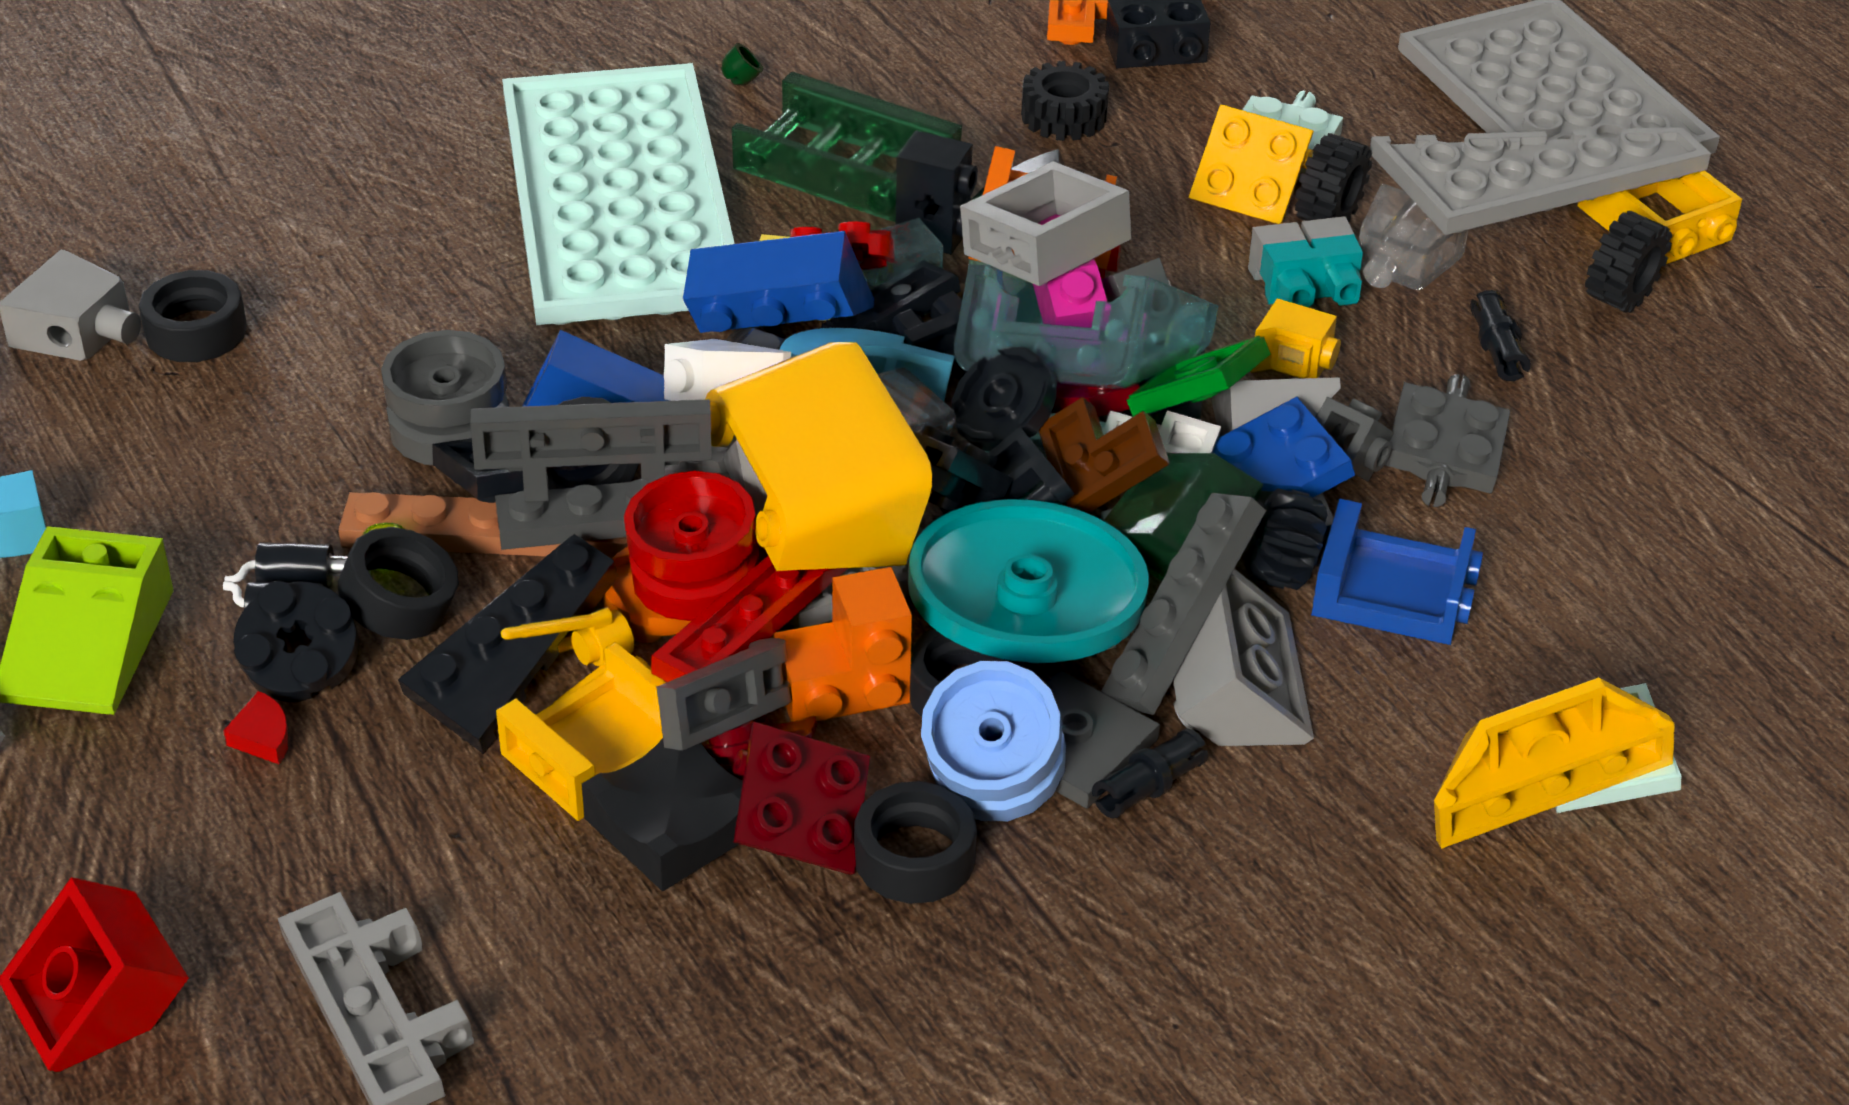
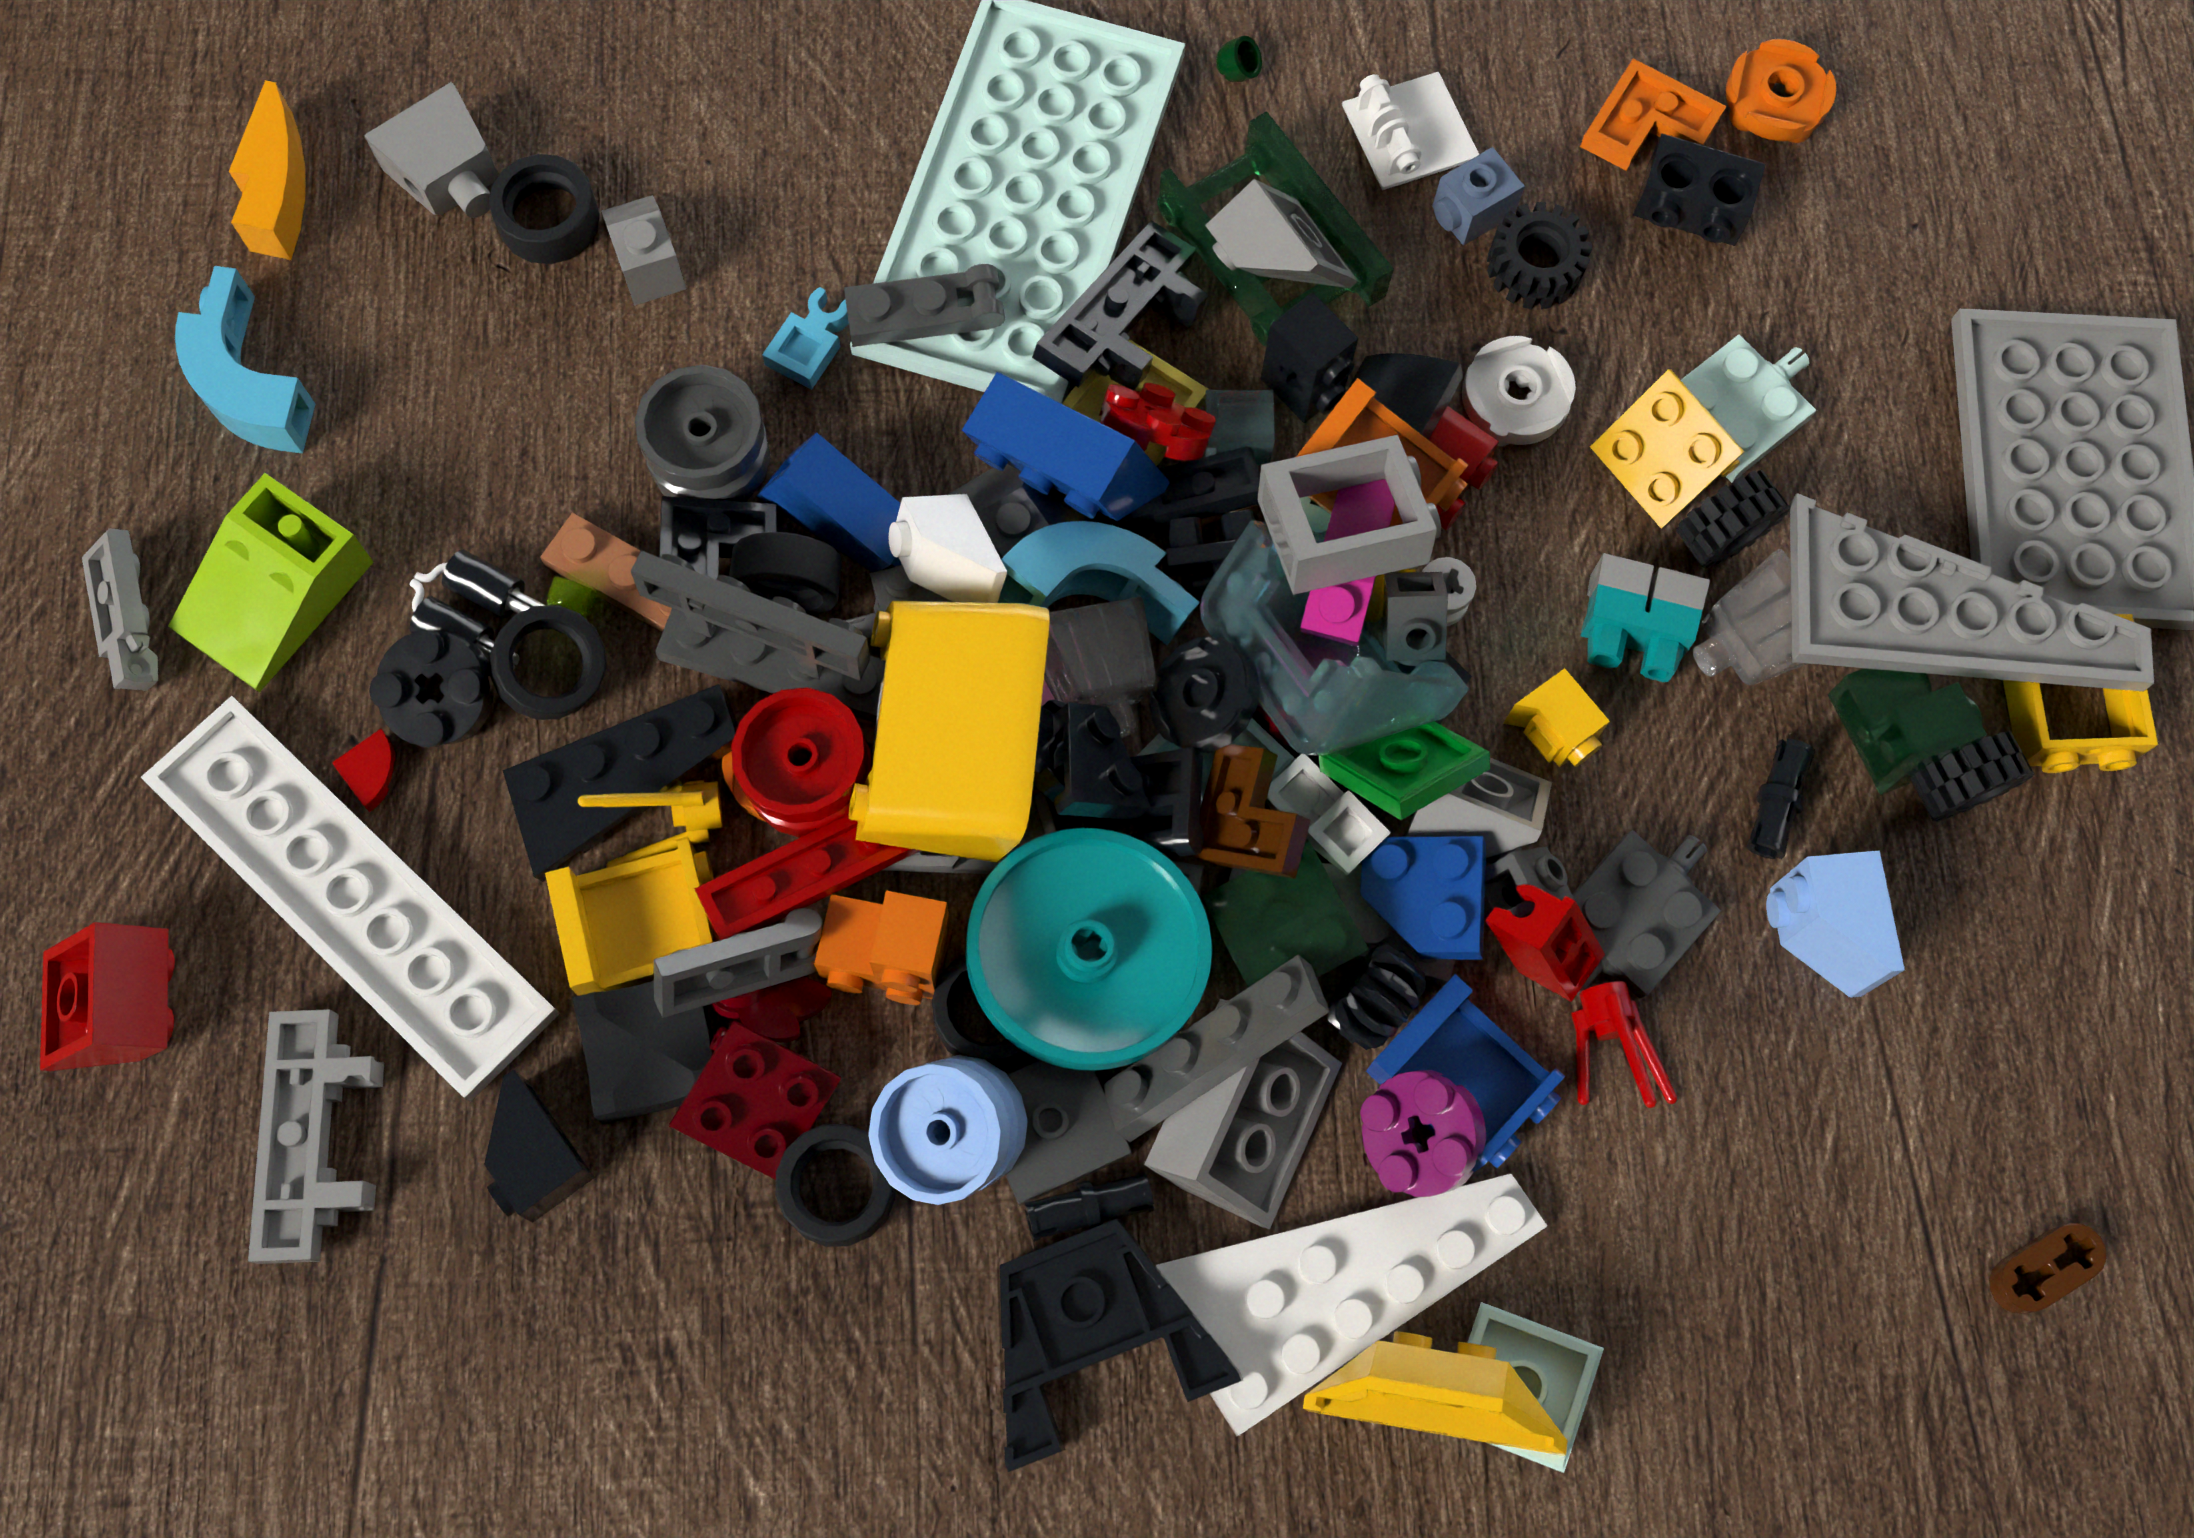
camera: 25 degrees right, 30 degrees up
(304, 816) = (351, 898): none -> white plate
(306, 311) = (644, 250): none -> light grey slope
(496, 319) = (807, 345): none -> medium azure plate
(586, 262) = (924, 306): none -> dark grey plate
(614, 923) = (530, 1154): none -> black slope
(753, 207) = (1097, 324): none -> black hinge
(858, 121) = (1275, 239): none -> light grey slope
(904, 65) = (1408, 128): none -> white hinge
(991, 80) = (1477, 196): none -> sand blue brick
(1129, 162) = (1530, 366): none -> white plate
(1201, 832) = (1082, 1307): none -> black wing
(1371, 778) = (1329, 1290): none -> white wing
(1383, 577) = (1389, 1140): none -> magenta plate
(1395, 449) = (1551, 943): none -> red hinge
(1477, 497) = (1613, 1016): none -> red plant
(1551, 252) = (1902, 723): none -> clear green brick
(1604, 368) = (1839, 920): none -> light blue slope

